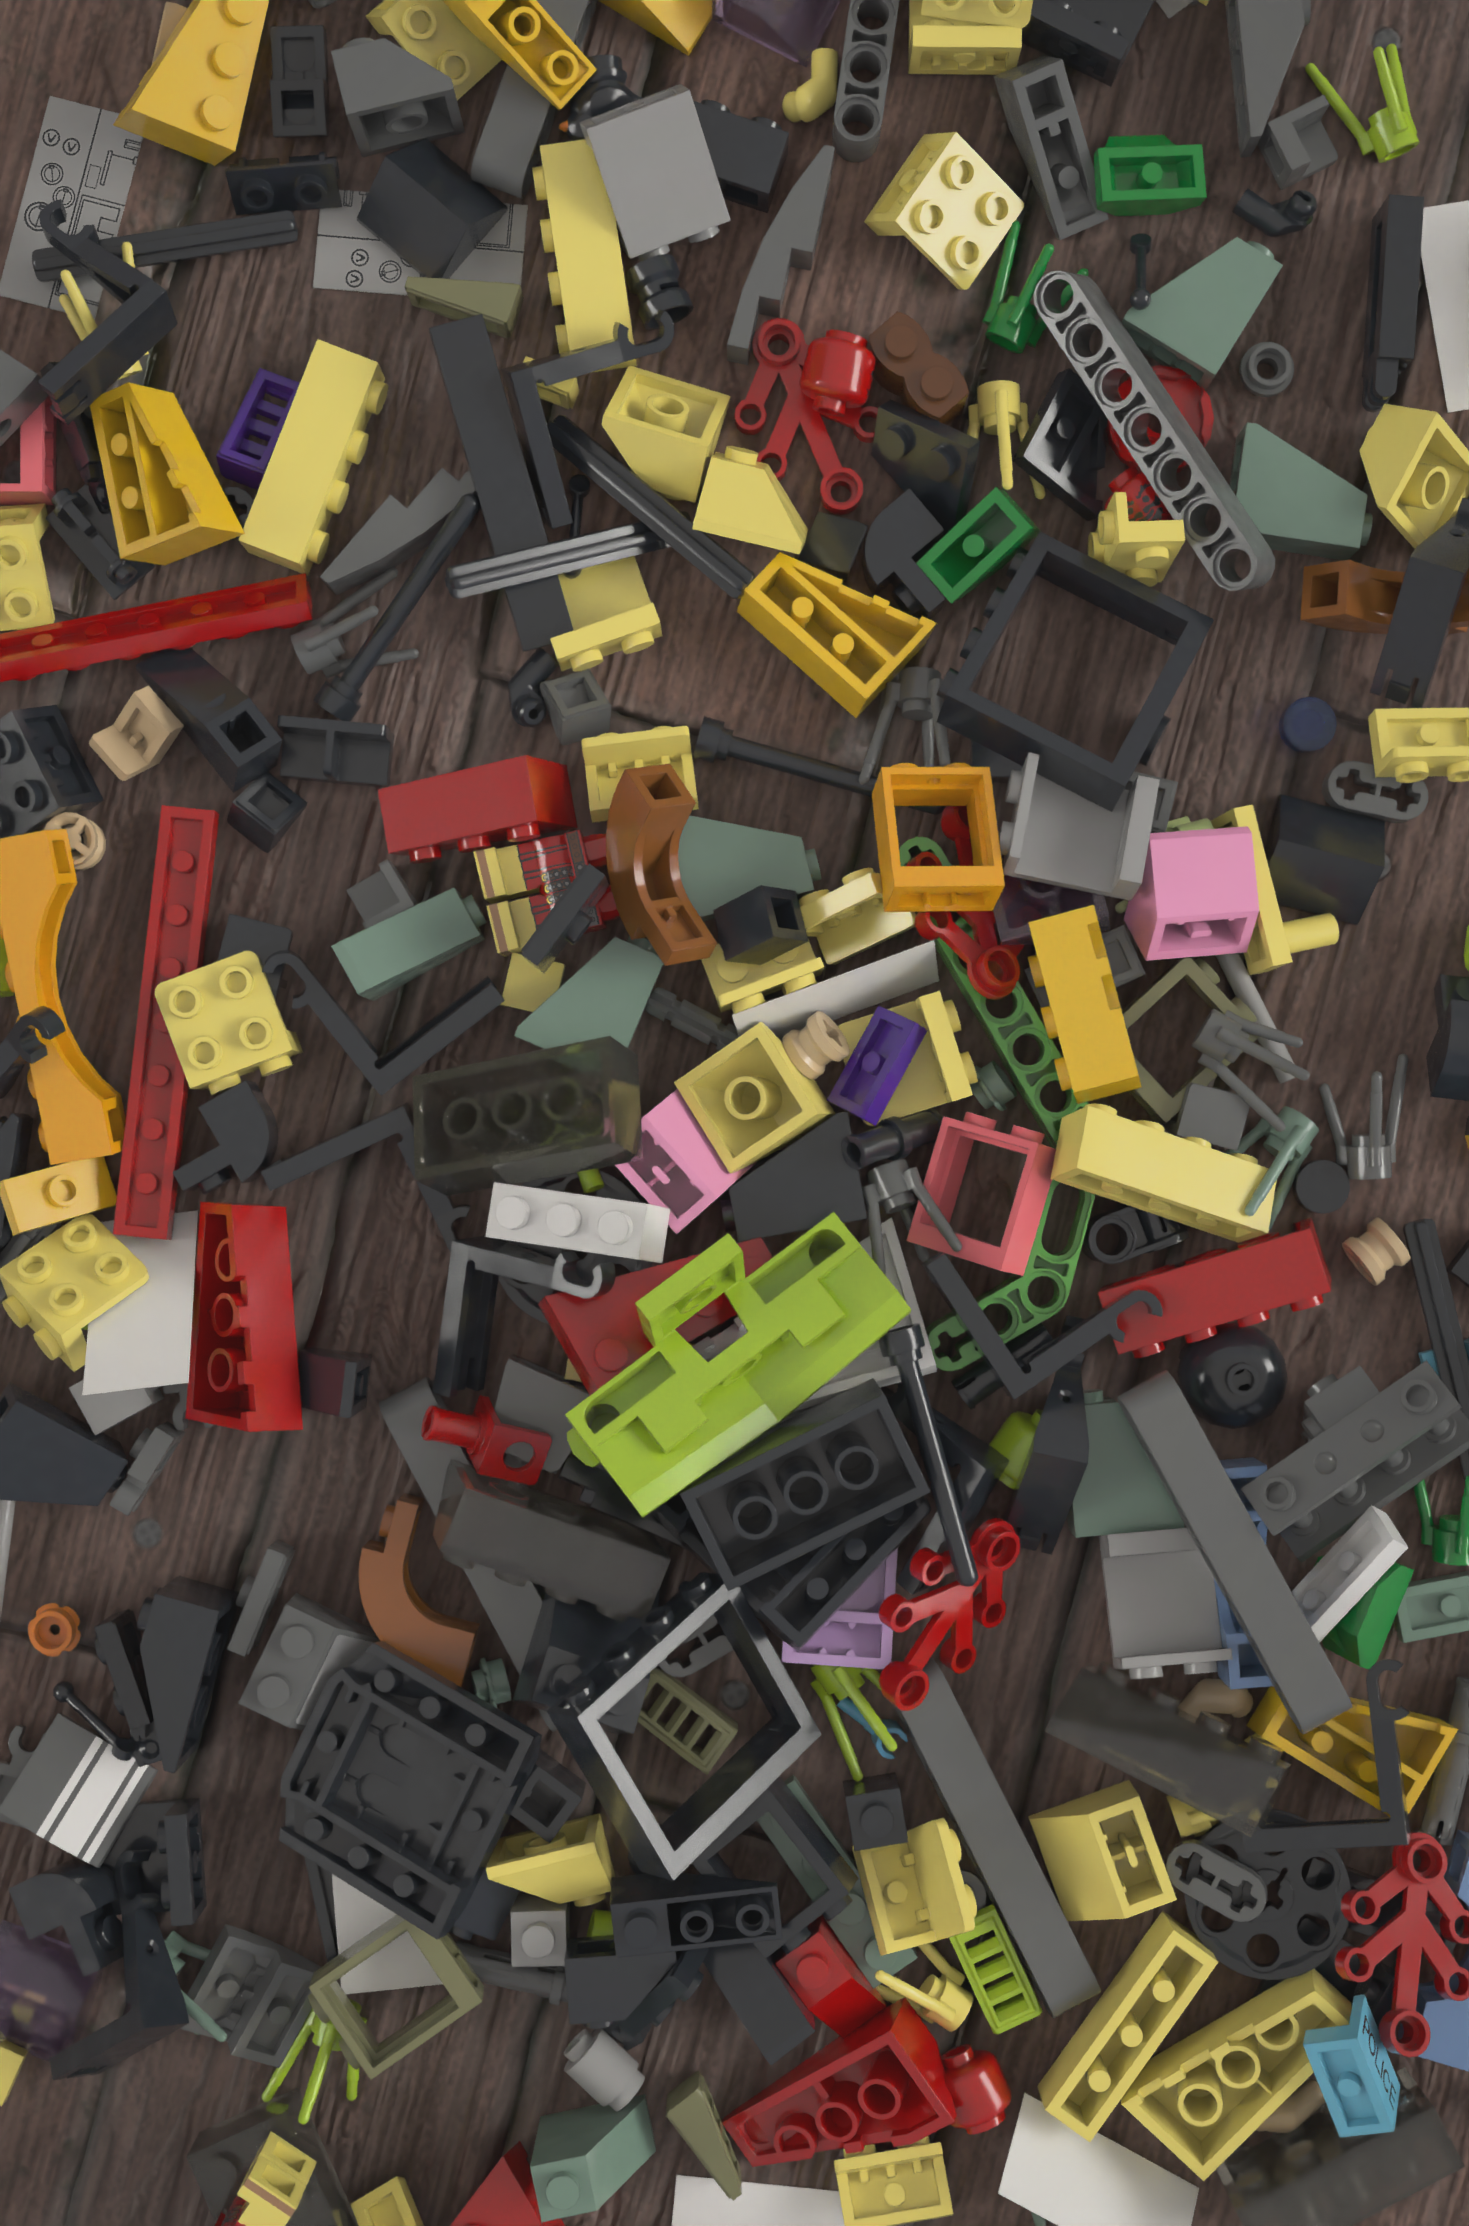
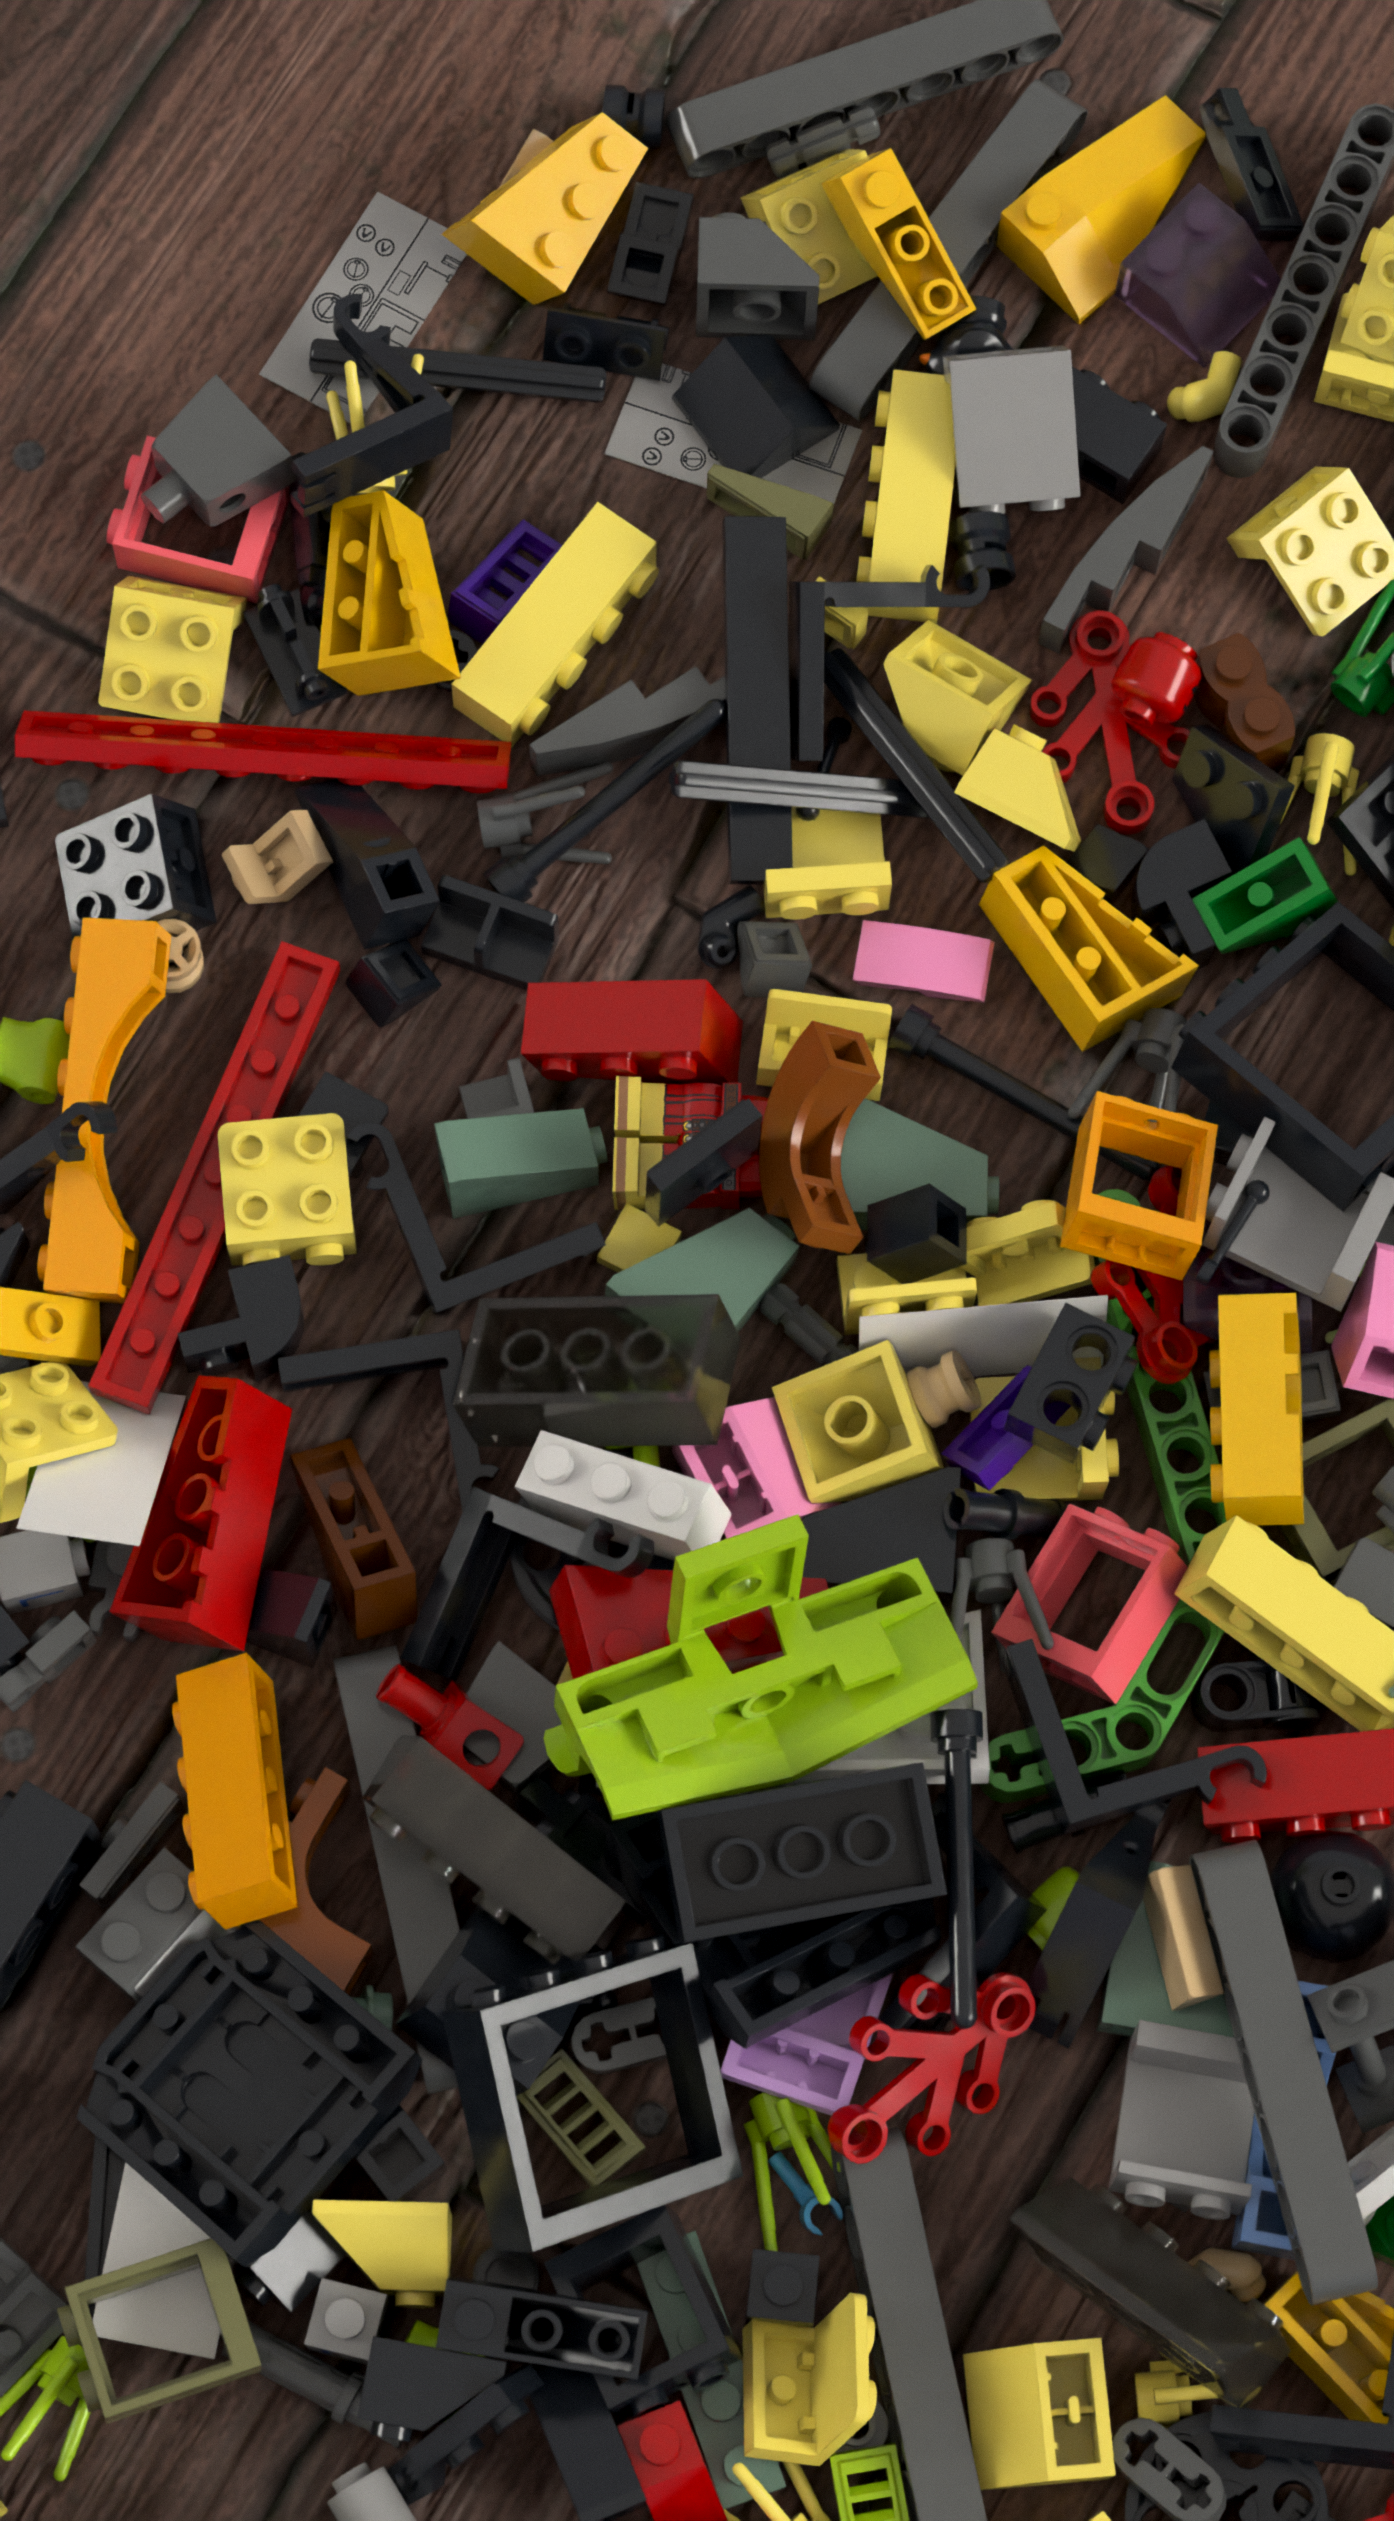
camera: 15 degrees right, 15 degrees down
(329, 1545) = (234, 1792): none -> light orange brick
(368, 1297) = (356, 1539): none -> reddish brown slope
(703, 675) = (923, 961): none -> bright pink slope
(909, 1023) = (1059, 1379): none -> black brick
(993, 1086) = (1134, 1493): sand green plate -> none
(1036, 818) = (1256, 1193): none -> black hinge
(1126, 1462) = (1181, 1937): none -> tan slope

